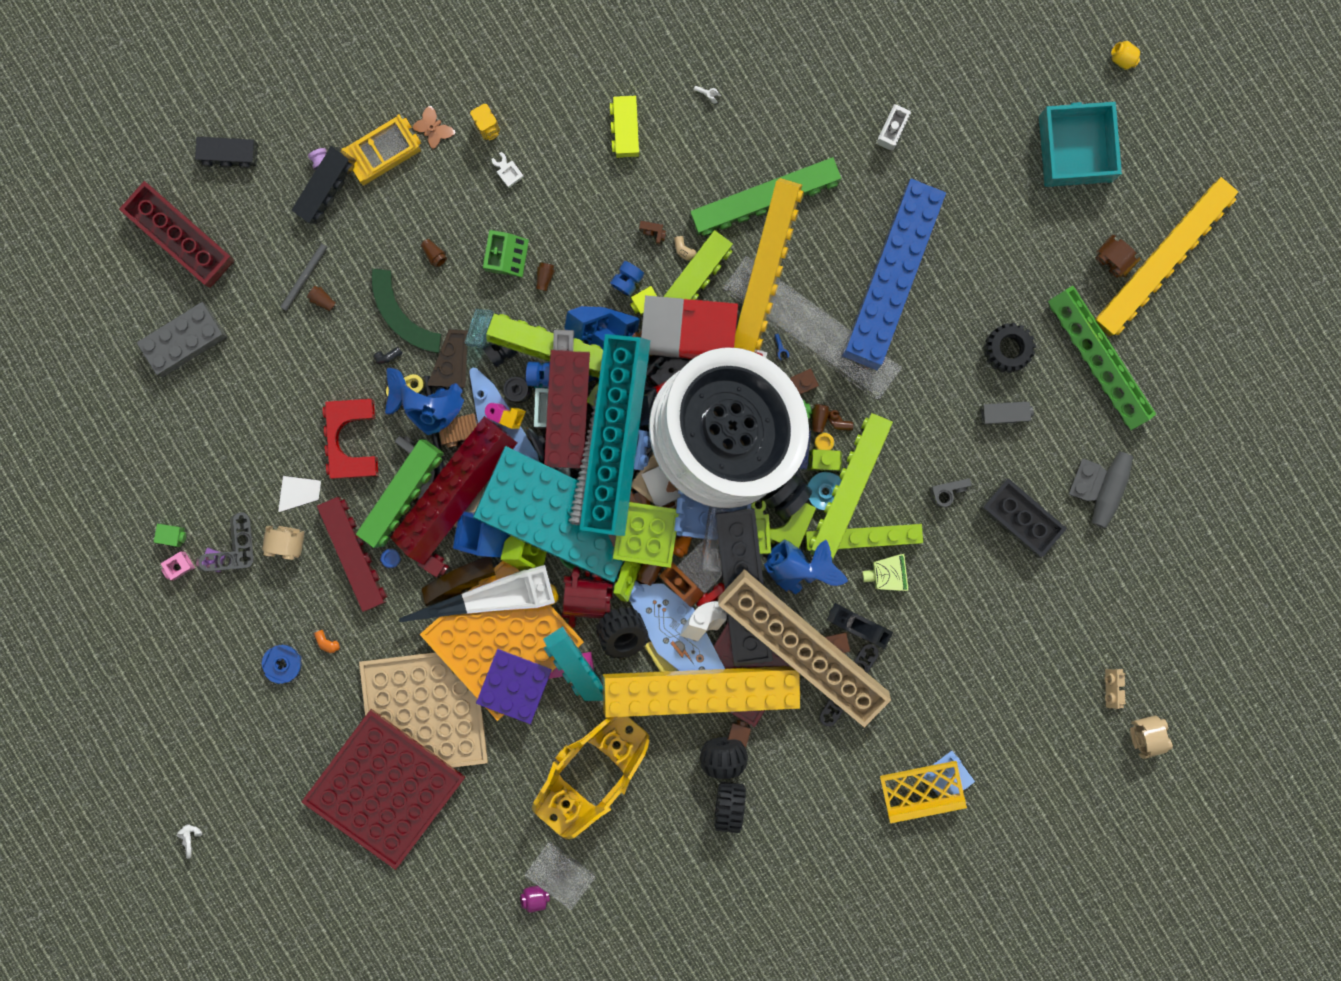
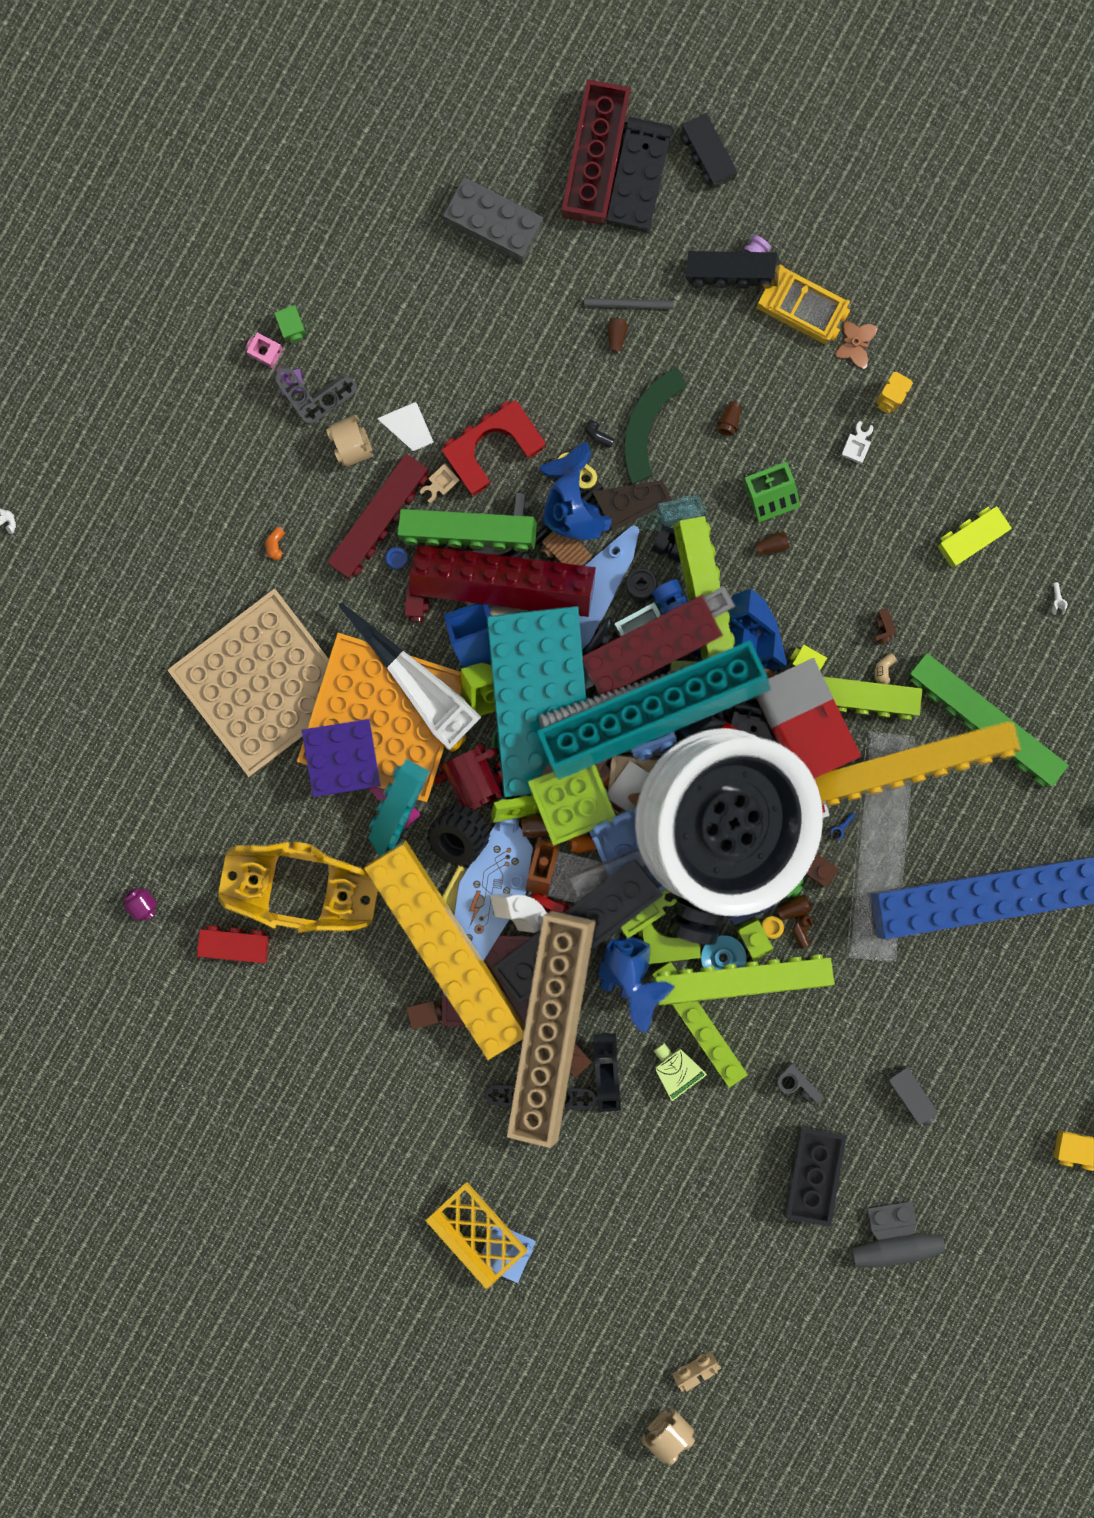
camera: 60 degrees right, 0 degrees up
(213, 212) = (639, 175): none -> black hinge
(287, 673) = (237, 520): blue plate -> none
(353, 491) = (443, 480): none -> tan plate
(383, 789) = (161, 687): dark red plate -> none
(458, 580) = (414, 638): dark brown slope -> none
(501, 415) = (606, 586): leg -> none
(560, 875) = (178, 915): clear brick -> none
(604, 846) = (233, 944): none -> red brick
(629, 272) = (828, 629): blue wheel -> none
(723, 758) = (392, 1012): black wheel -> none
(730, 807) = (346, 1048): black tyre -> none
(1024, 341) = (999, 1066): black tyre -> none
(1111, 361) = (1027, 1173): bright green brick -> none

